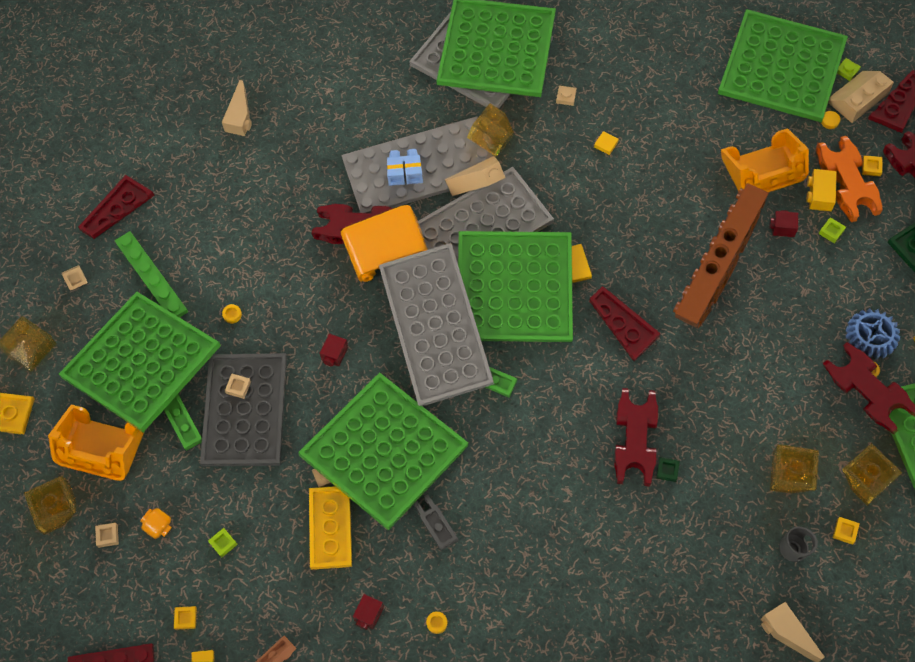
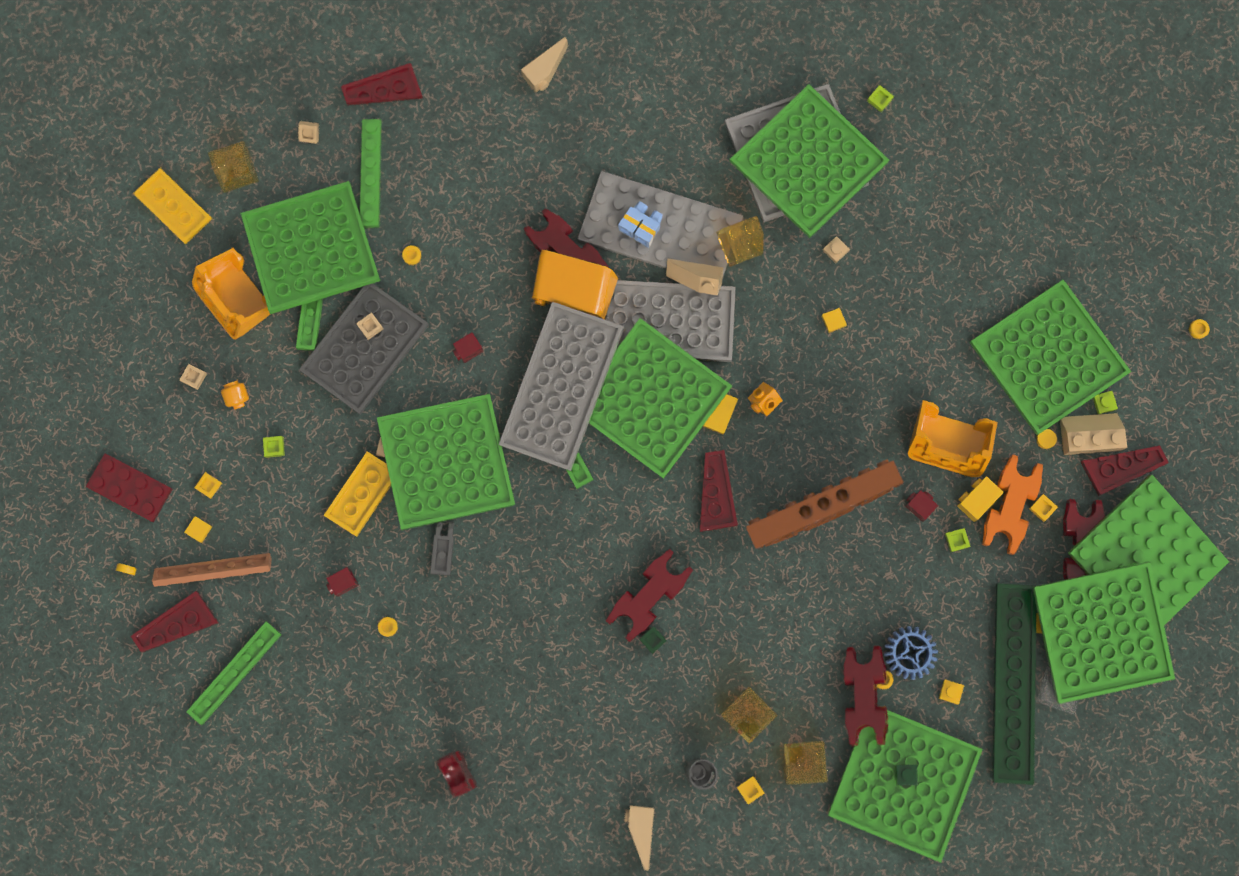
camera: 35 degrees right, 15 degrees up
(51, 504) = (166, 323): clear yellow slope -> none
(602, 228) = (764, 399): none -> light orange brick

